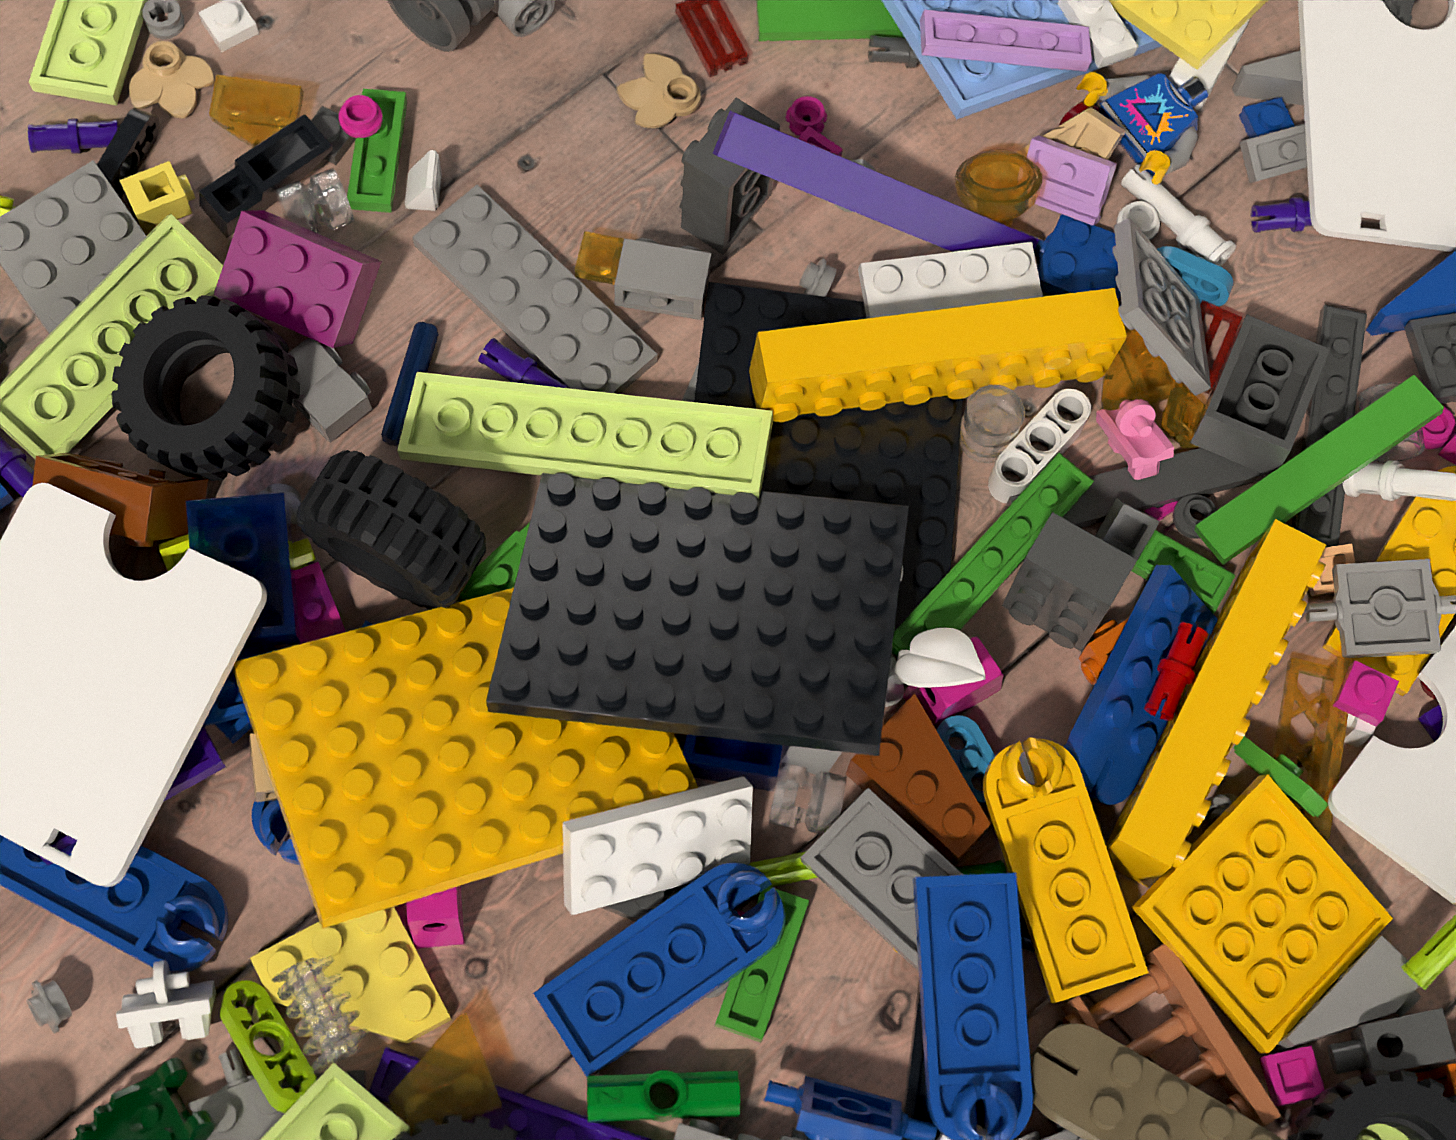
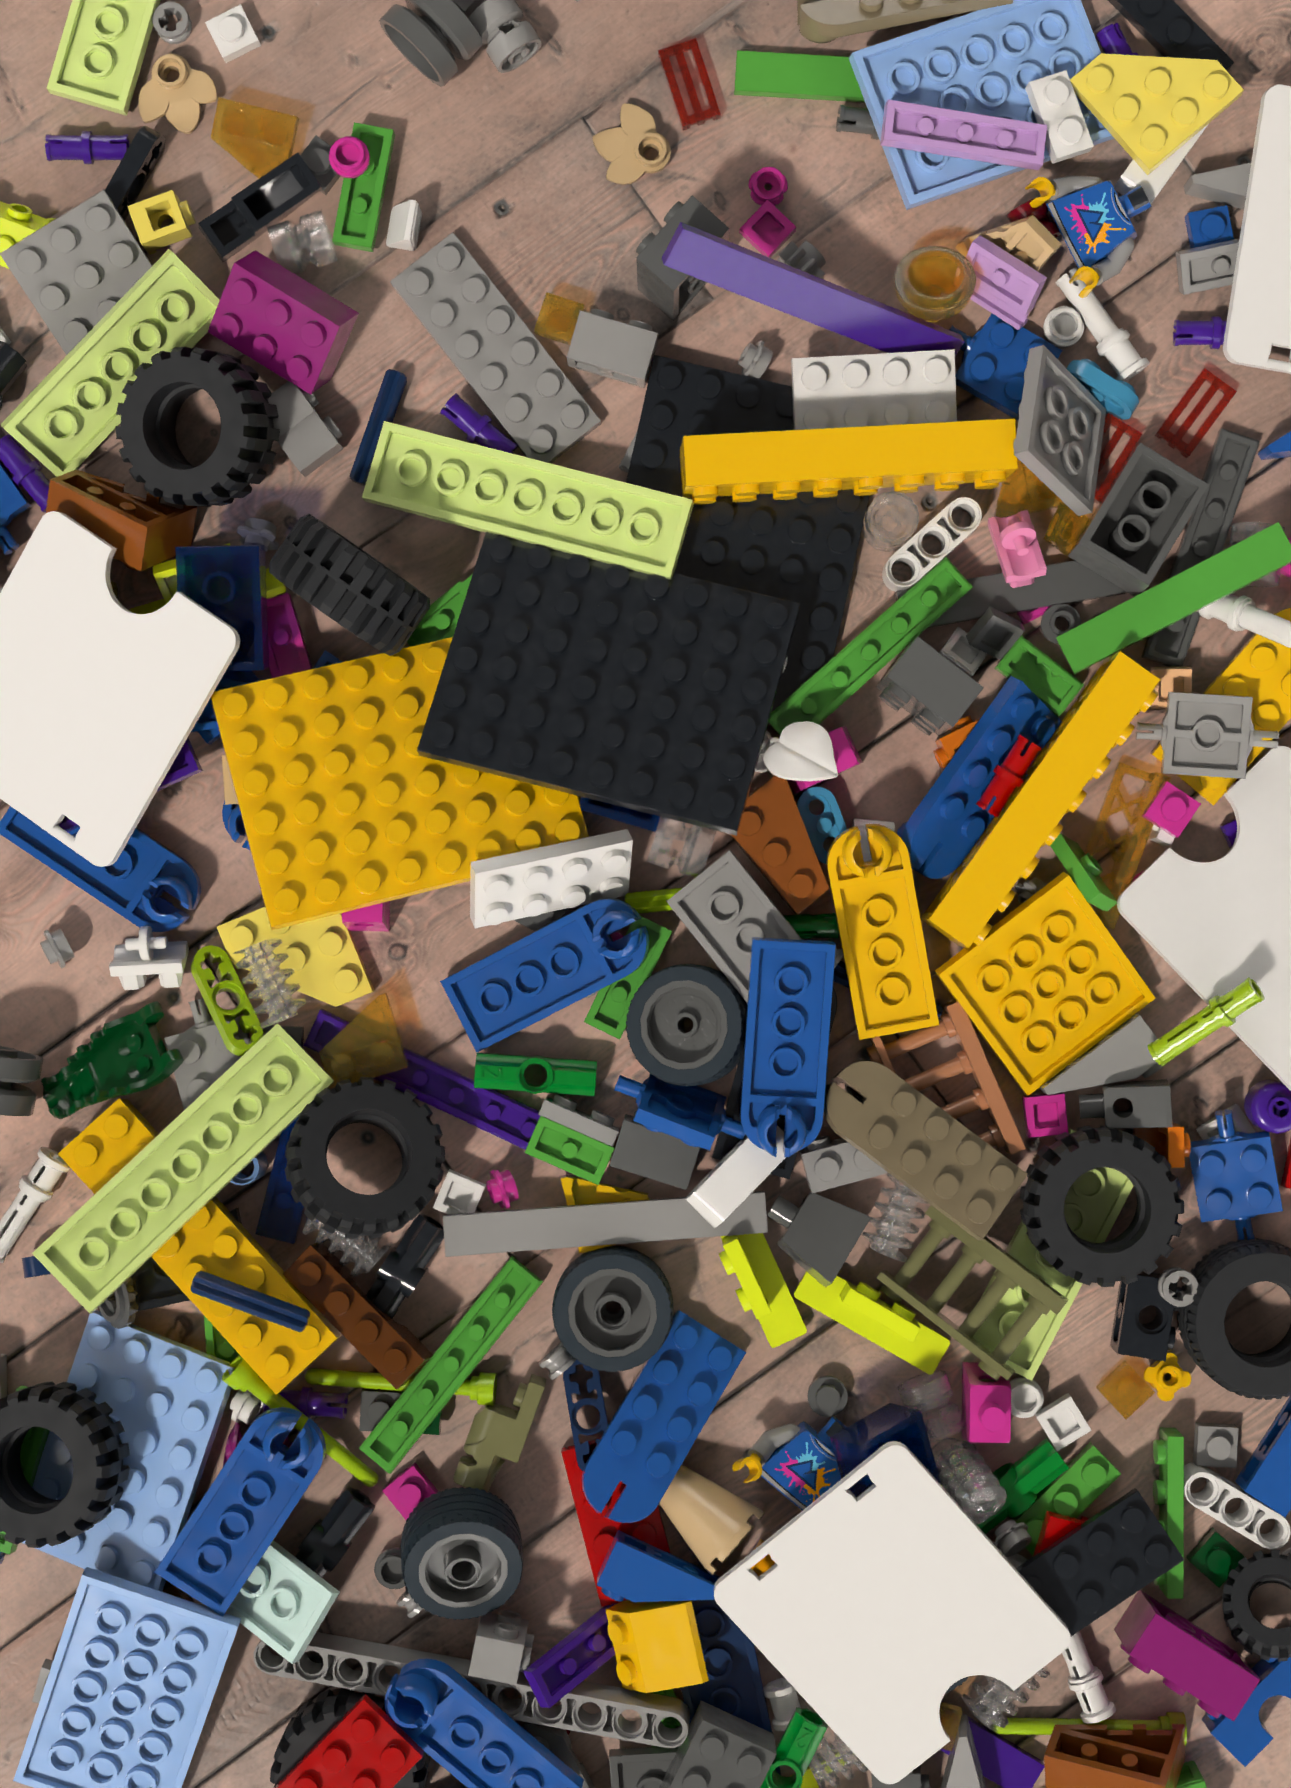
camera: 15 degrees right, 20 degrees up
(856, 1045) = (658, 1029): none -> wheel
(1279, 319) = (1174, 440): none -> clear red tile

